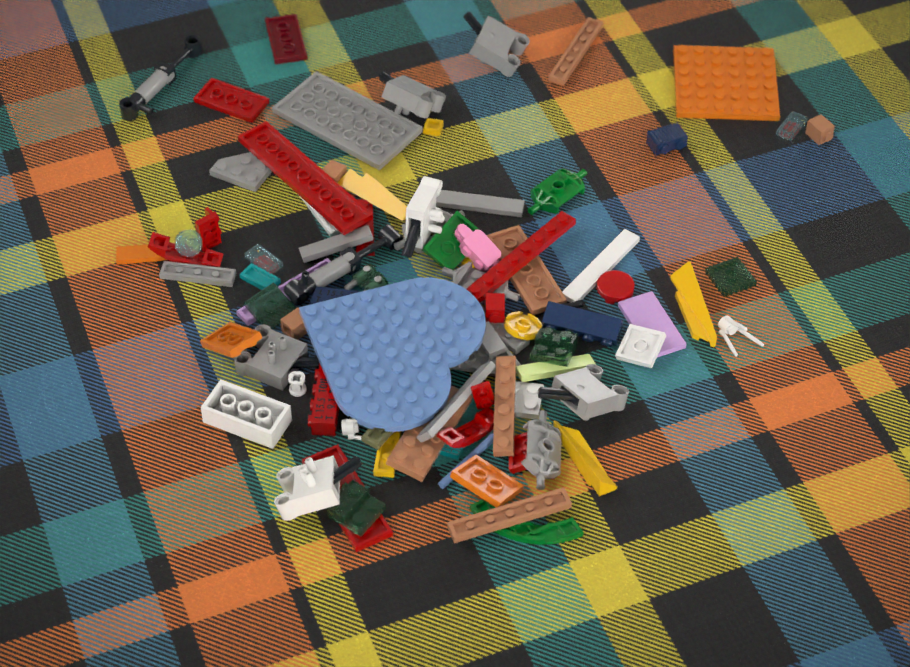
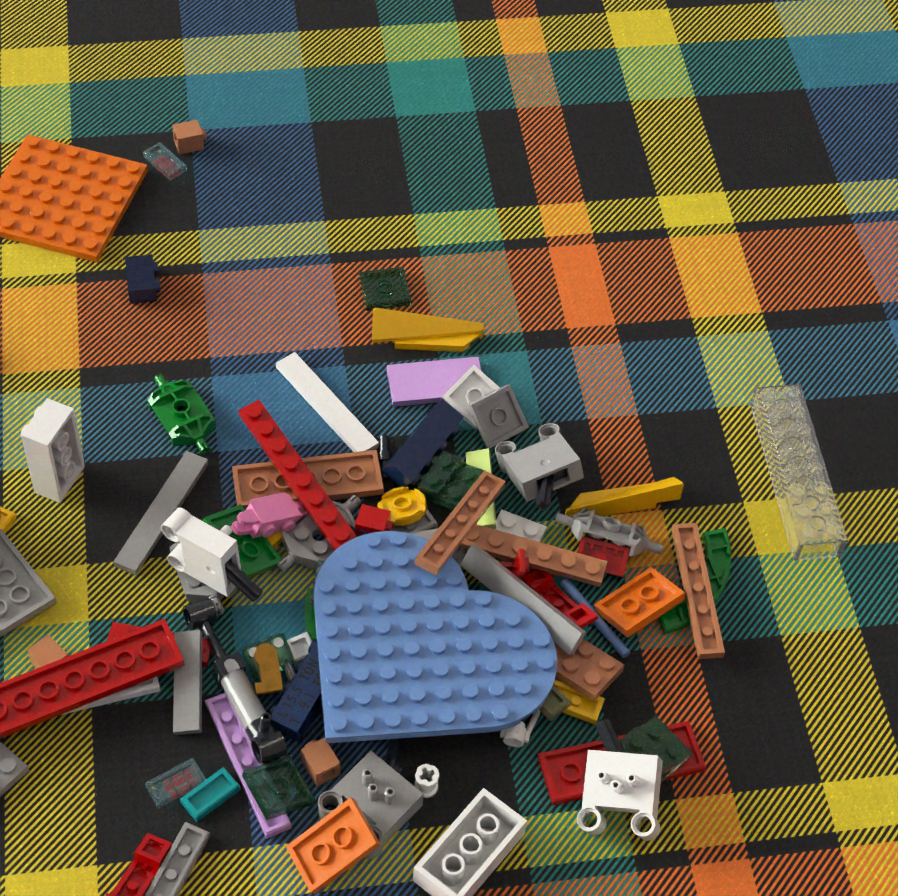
camera: 80 degrees left, 5 degrees up
(188, 243) = (126, 870): clear light blue plate -> none
(209, 229) = (100, 832): red bracket -> none
(323, 407) = (470, 753): red brick -> none
(353, 275) = (269, 670): none -> pearl gold leg
(374, 192) = (106, 615): yellow wedge -> none
(479, 121) = (53, 449): none -> white brick
(505, 346) = (459, 523): none -> nougat plate
(615, 286) = (367, 397): red tile -> none
(627, 362) = (498, 416): none -> light grey plate
(659, 572) = (798, 472): none -> clear brick
(730, 326) = (465, 309): white plant -> none

